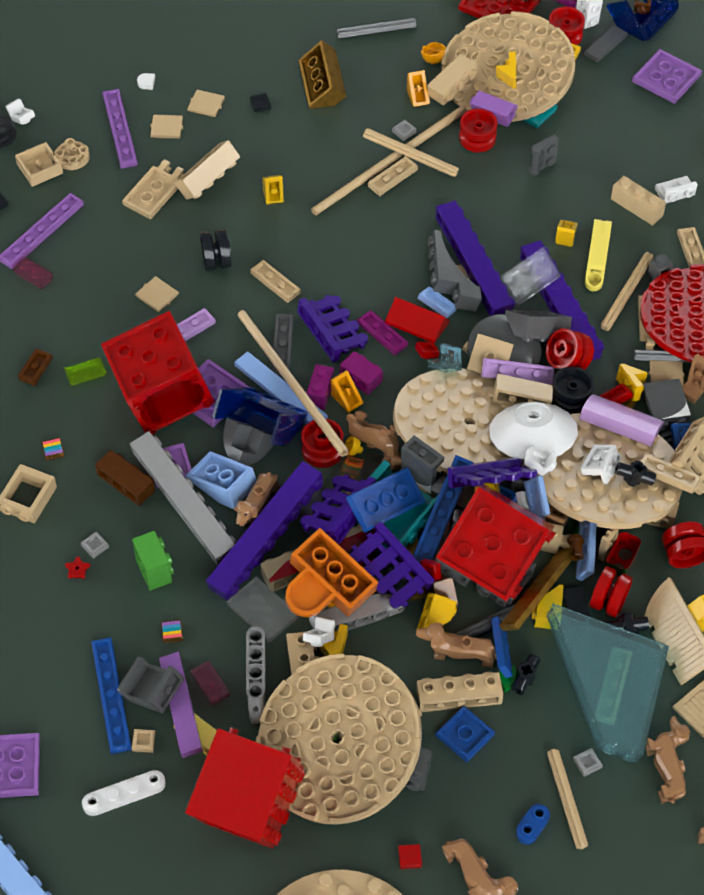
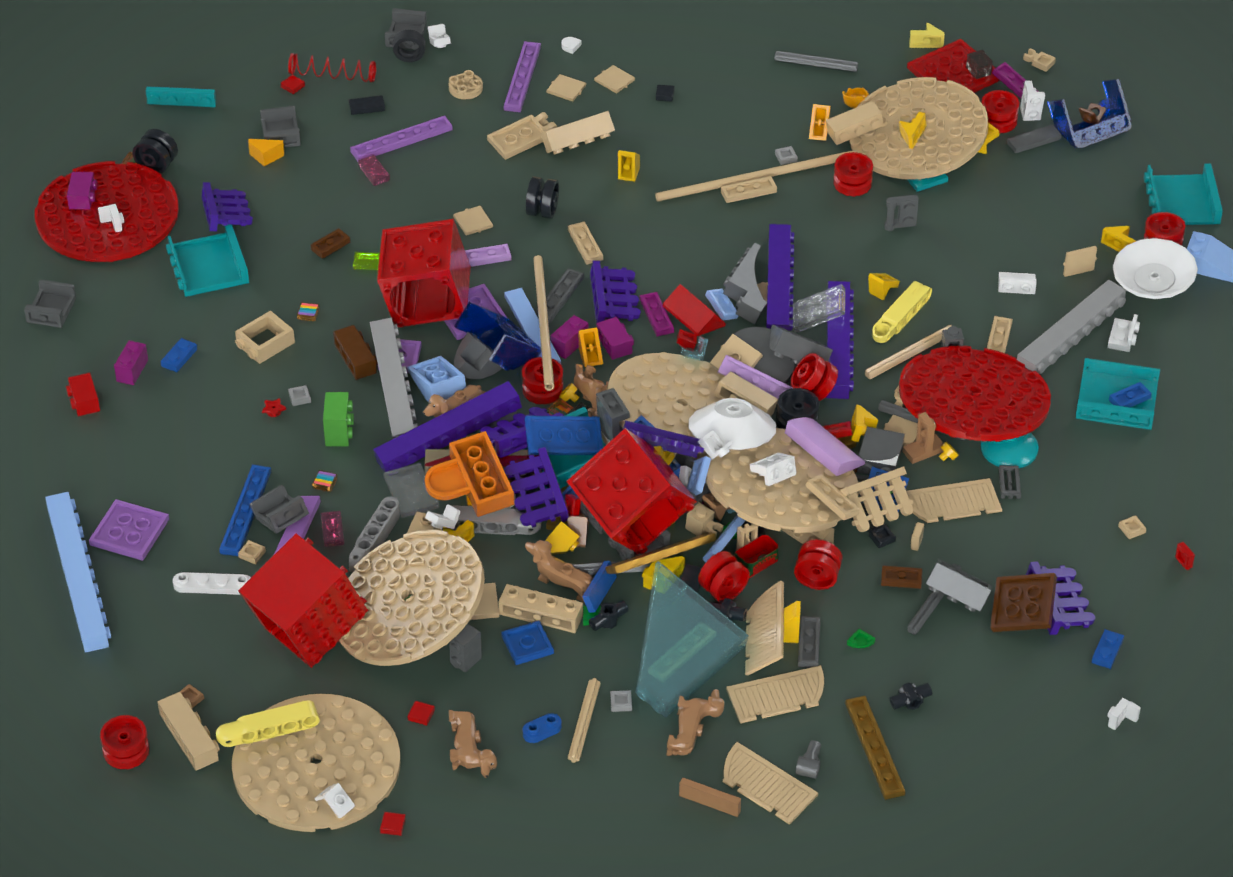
camera: 25 degrees right, 10 degrees down
(38, 165) = (430, 83): tan piece -> none
(322, 76) = (736, 87): pearl gold slope -> none
(411, 152) = (777, 174): tan axle -> none
(502, 109) = (883, 162): medium lavender brick -> none
(576, 542) = (716, 528): reddish brown pin -> none
(635, 473) = (798, 485): black axle -> none
(638, 200) = (970, 279): tan brick -> none
(667, 76) = (1075, 183): medium lavender plate -> none

